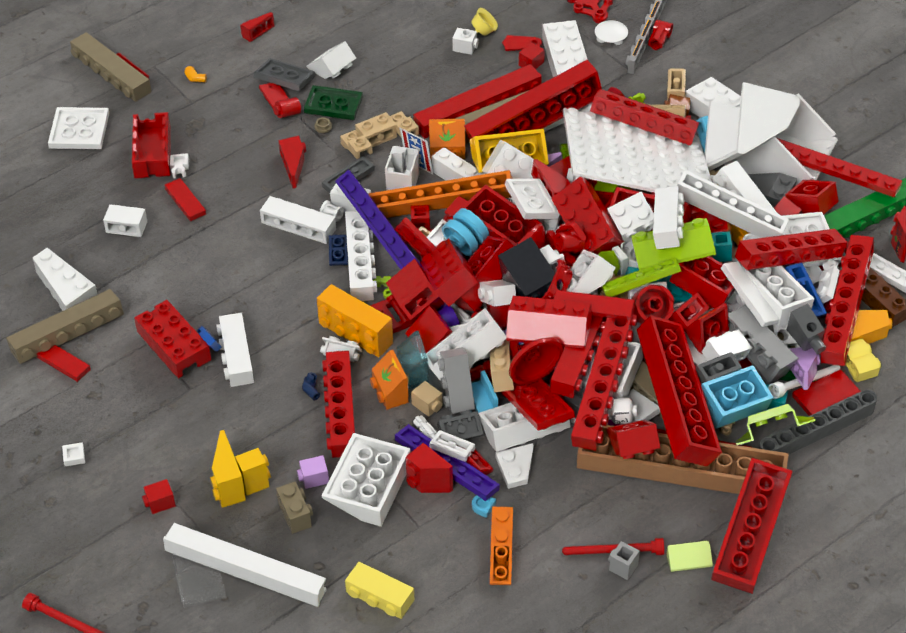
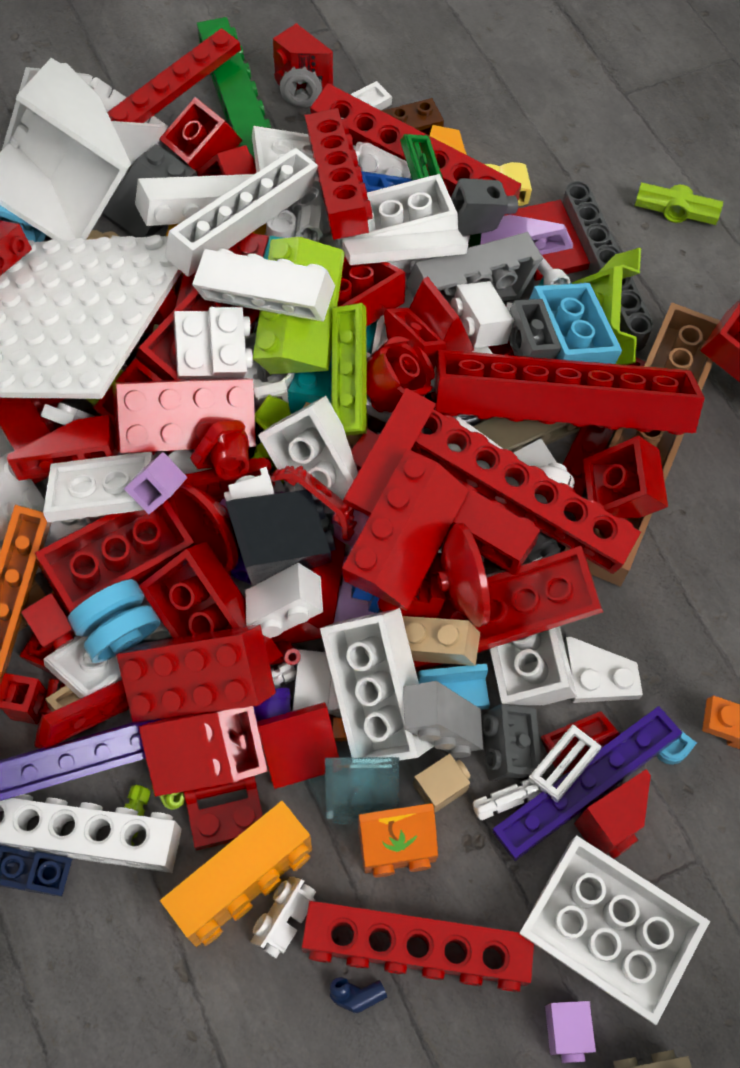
camera: 80 degrees left, 15 degrees up
(534, 210) = (155, 483): none -> lavender brick
(817, 304) = (416, 160): none -> green tile
(888, 239) = (301, 97): none -> light grey gear
(893, 462) = (678, 203): none -> lime piece

